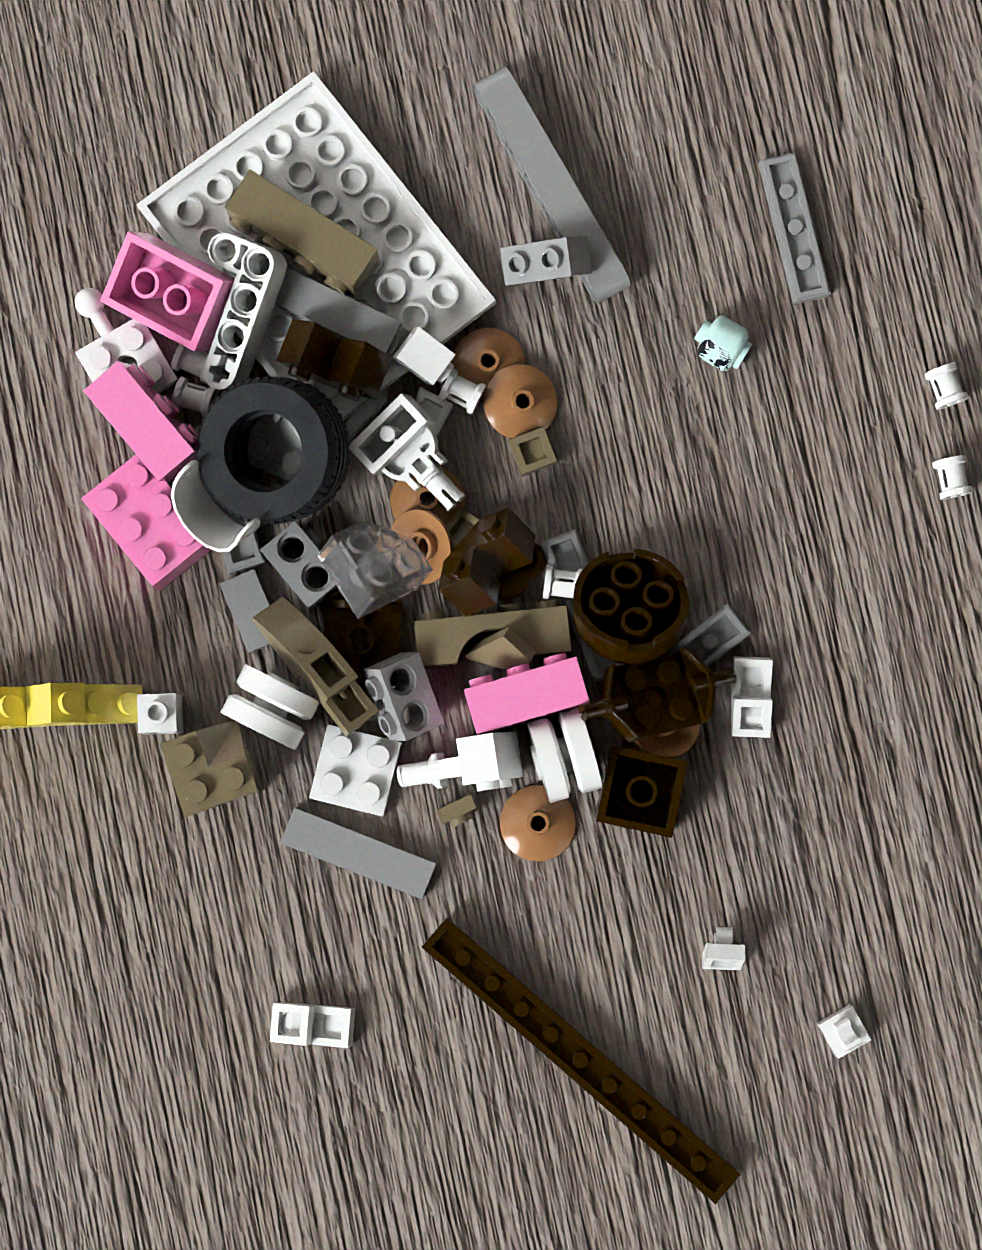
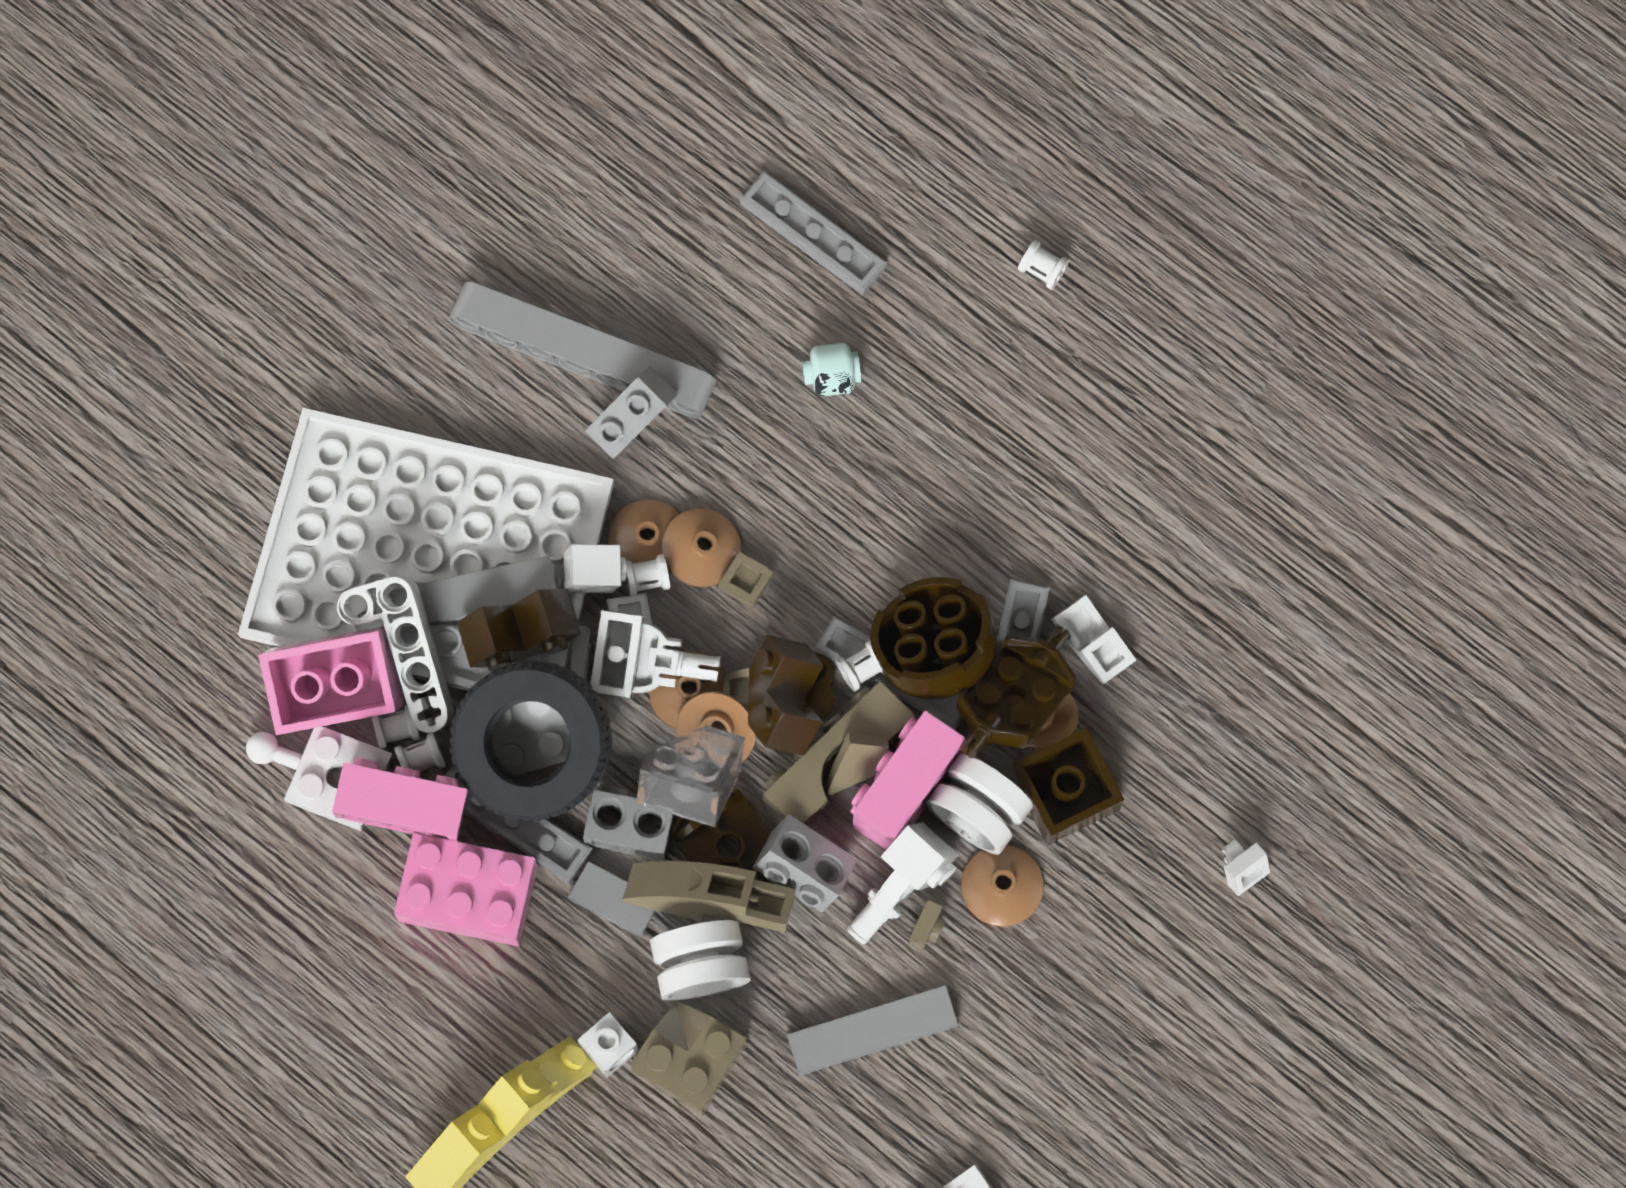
camera: 40 degrees left, 10 degrees down
(202, 516) = (516, 846): white piece -> none
(301, 233) = (405, 546): dark tan brick -> none
(355, 770) = (813, 963): white plate -> none
(581, 1060) = (1200, 1051): dark brown plate -> none
(844, 1031) = (1396, 853): white tile -> none
(952, 477) = (1109, 333): white bush -> none

